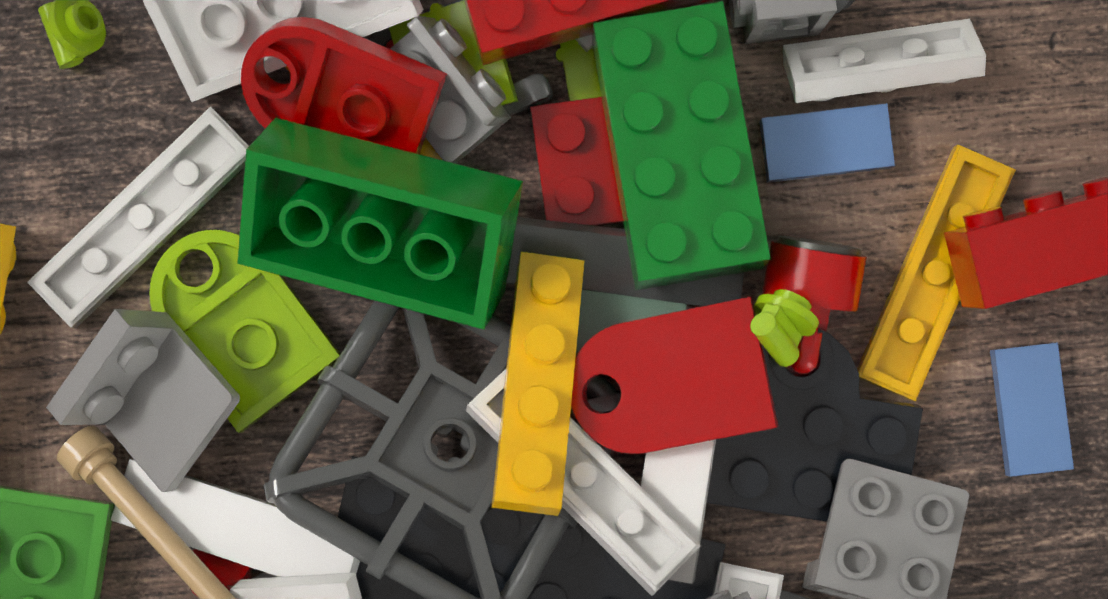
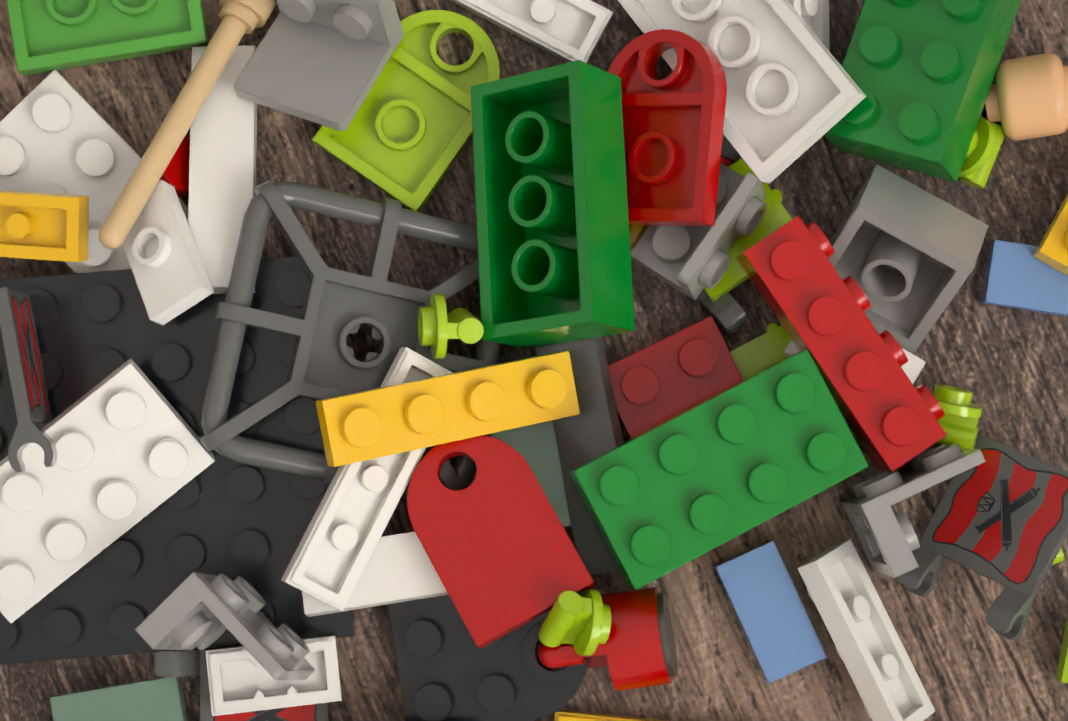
camera: 70 degrees right, 0 degrees up
(457, 367) = (438, 326): none -> lime plate

